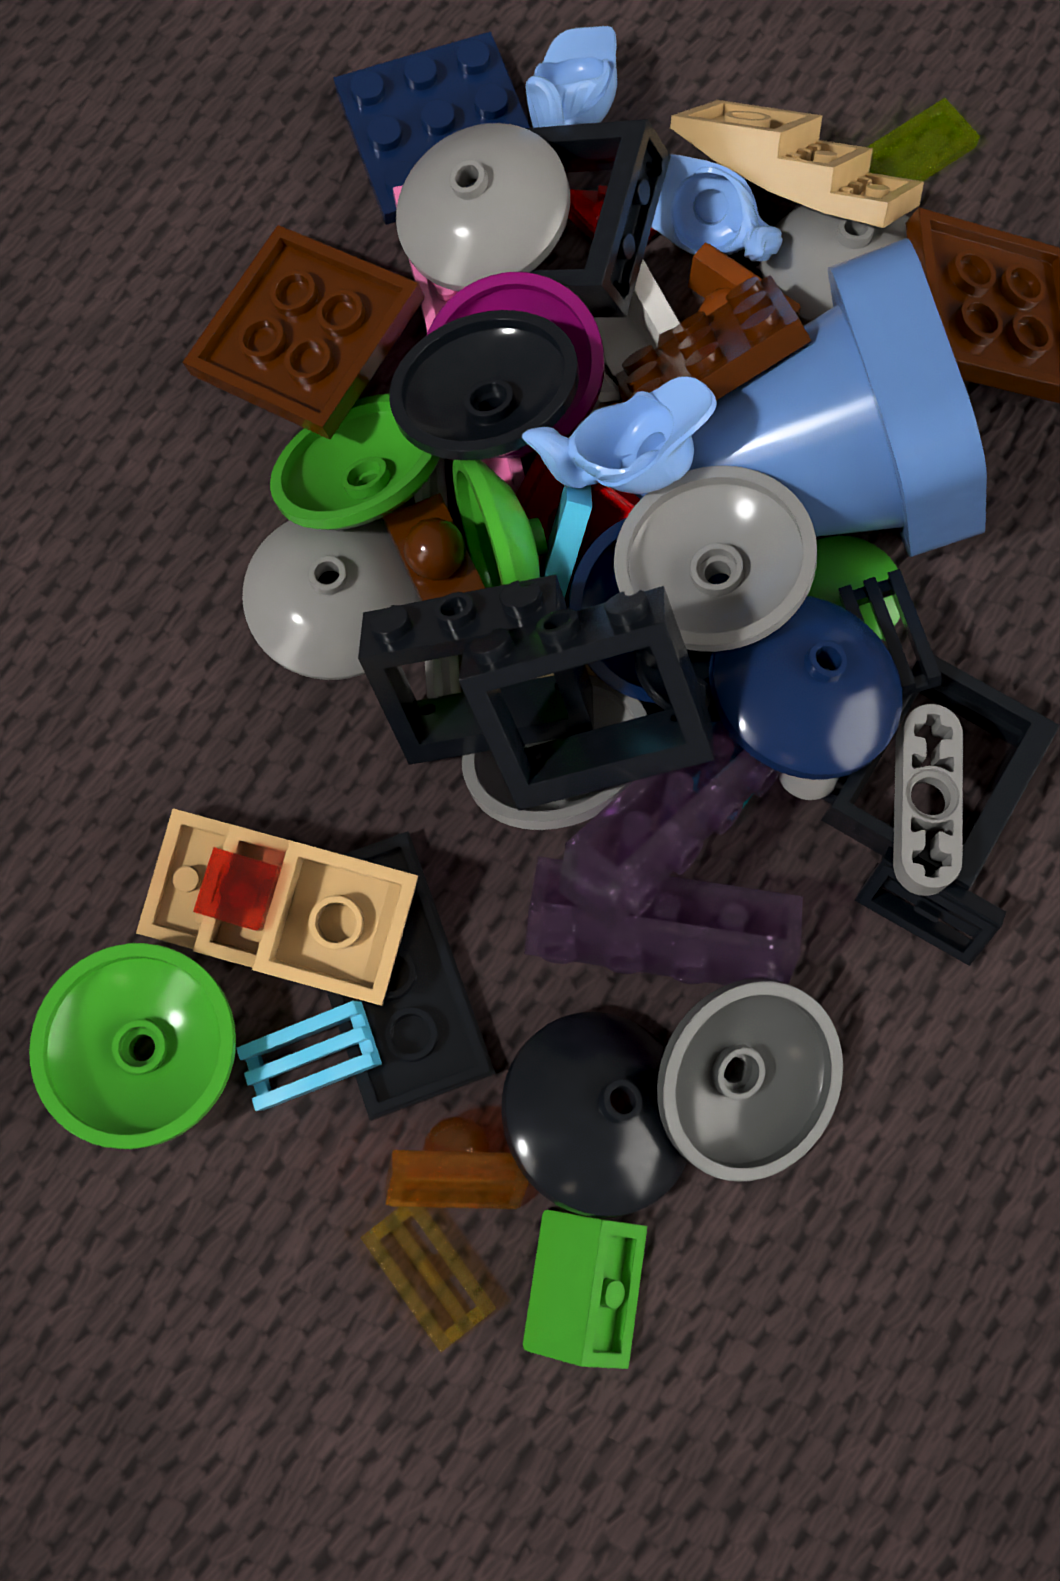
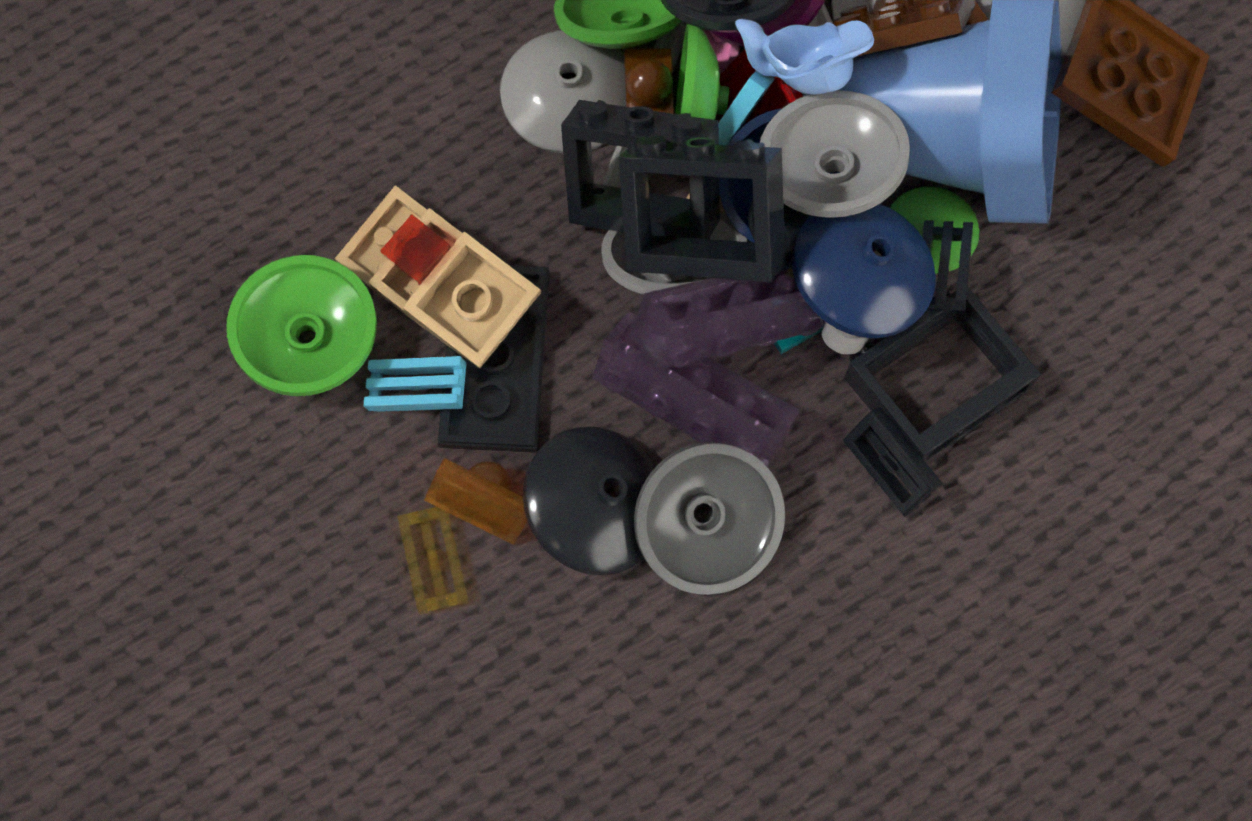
camera: 20 degrees right, 5 degrees down
(585, 1290) = (536, 613): bright green panel -> none
(946, 845) = (920, 402): light grey beam -> none

